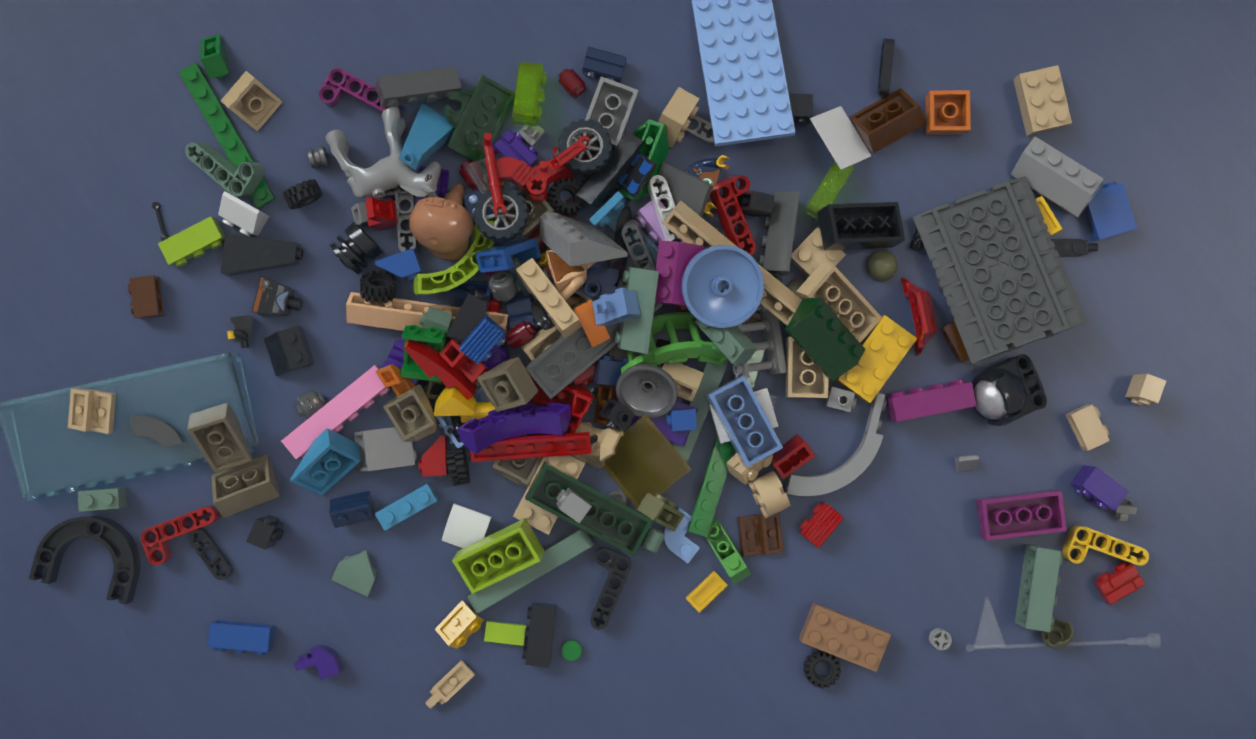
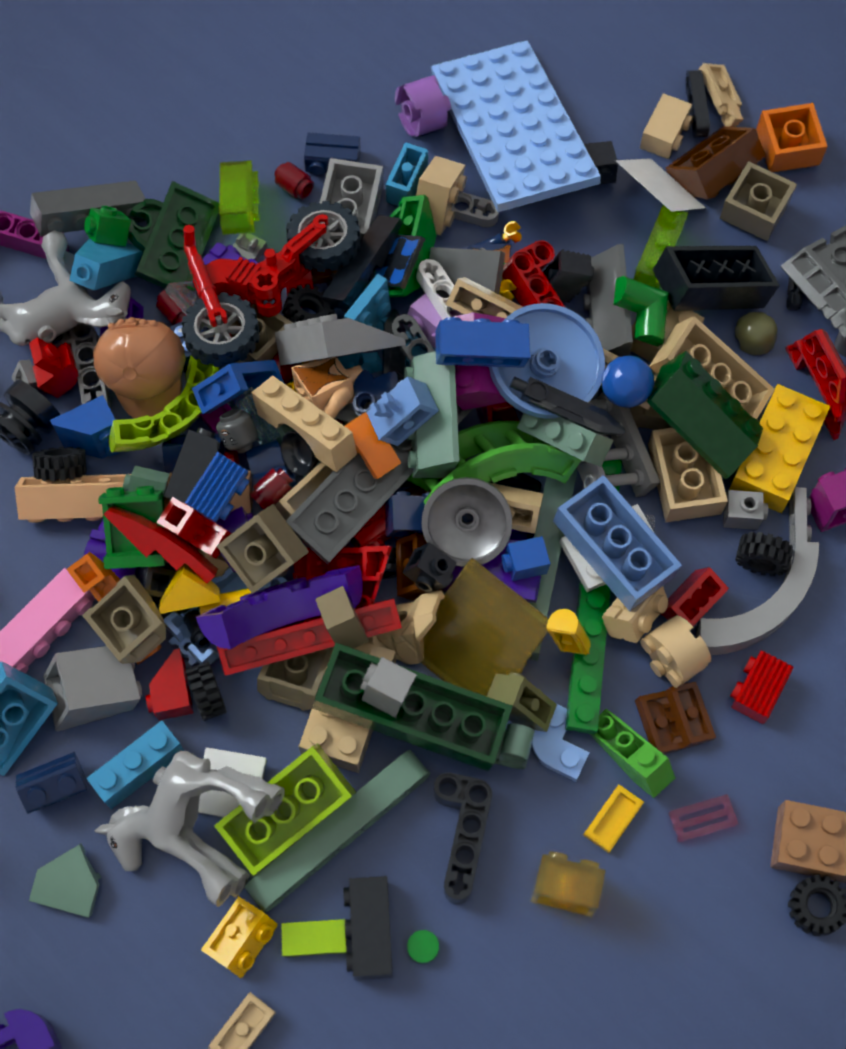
camera: 10 degrees left, 20 degrees down
(425, 551) = (173, 814): none -> light grey animal
(430, 109) = (107, 226): none -> green brick
(551, 443) = (341, 618): none -> dark tan slope
(655, 96) = (406, 173): none -> dark azure brick
(667, 632) = (568, 884): none -> clear yellow brick
(678, 38) = (422, 106): none -> medium lavender brick
(678, 274) = (482, 343): none -> blue brick
(700, 475) = (568, 632): none -> yellow brick
(729, 323) = (567, 406): none -> black piece
(759, 601) = (678, 826): none -> clear pink tile
(775, 311) = (627, 381): none -> blue piece
(806, 244) = (649, 305): none -> green brick
(844, 436) = (764, 553): none -> black tyre
(857, 83) = (666, 125): none -> tan piece
(907, 61) = (722, 93): none -> tan hinge
(909, 162) = (758, 201): none -> dark tan brick

